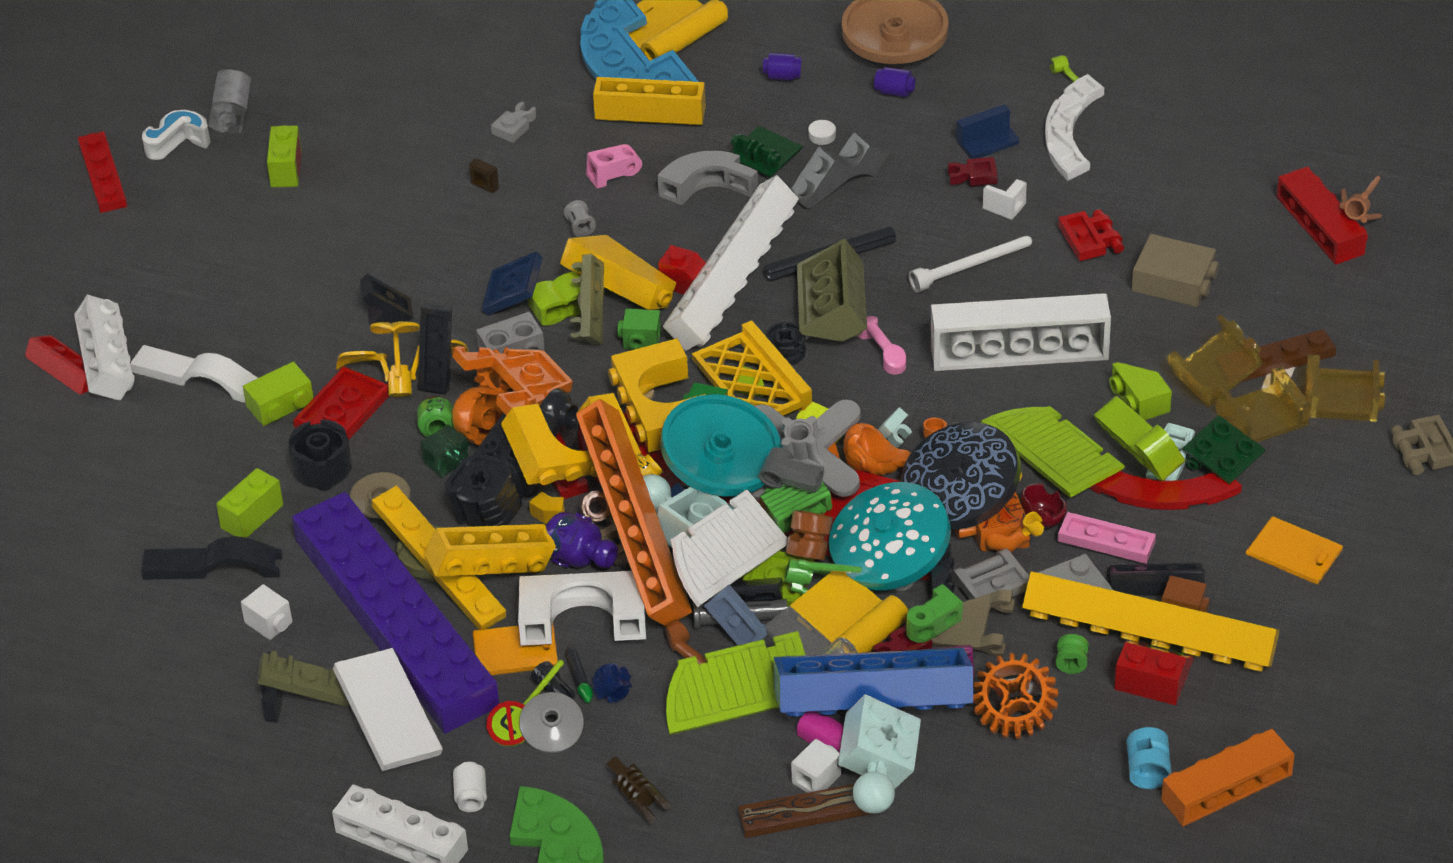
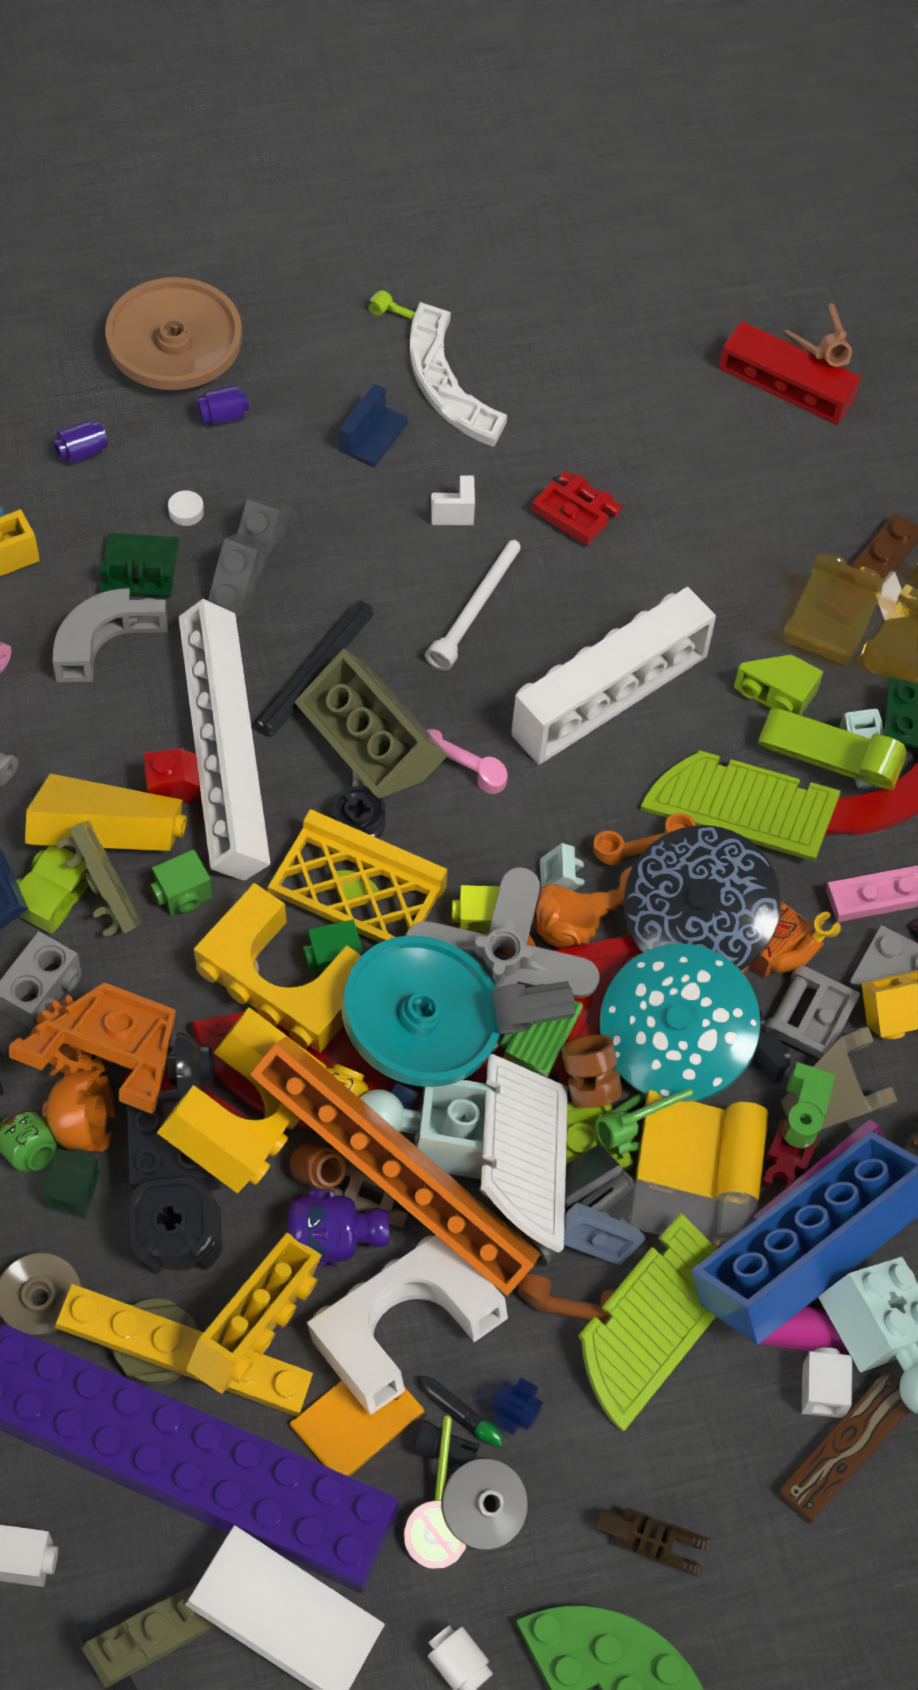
camera: 40 degrees left, 15 degrees up
(545, 507) = (255, 1198): yellow piece -> none
(976, 171) = (396, 481): dark red plate -> none
(1048, 506) = (802, 888): dark red hair -> none
(1175, 270) = (699, 512): dark tan brick -> none

